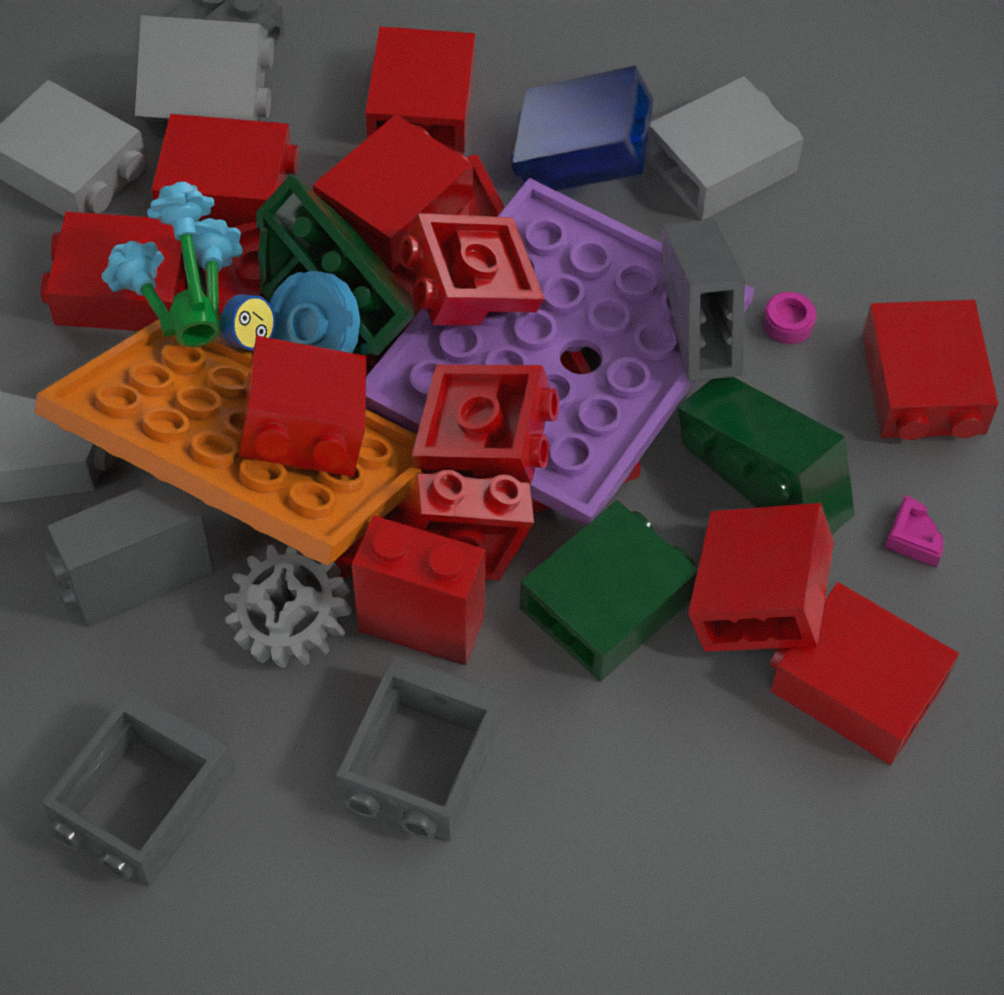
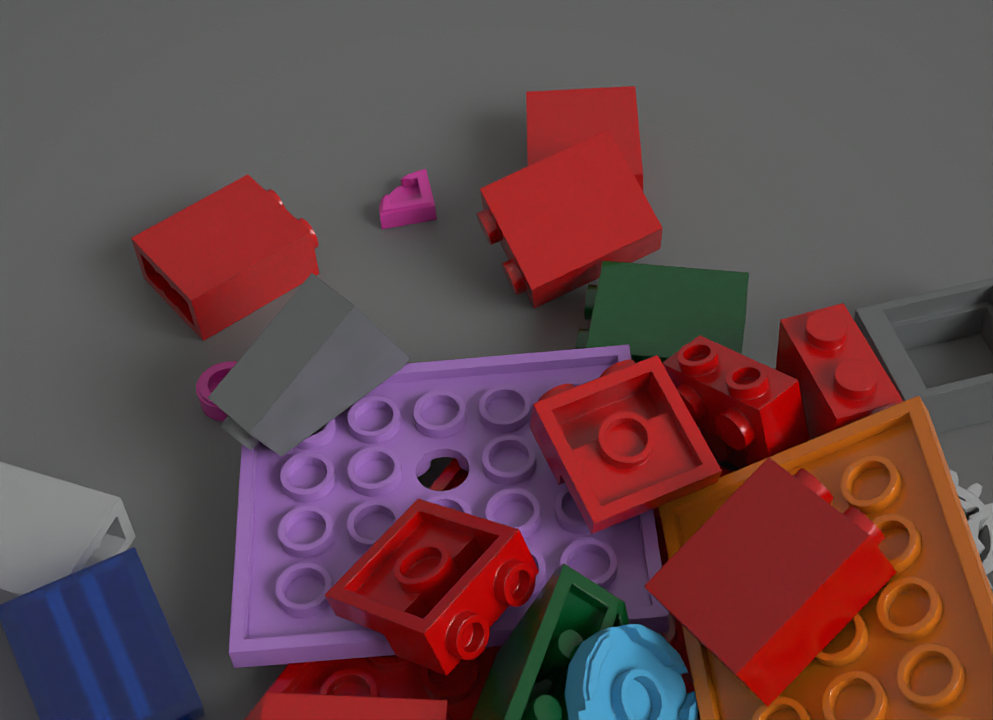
camera: 120 degrees left, 10 degrees down
(768, 449) = (430, 278): dark green wedge -> none

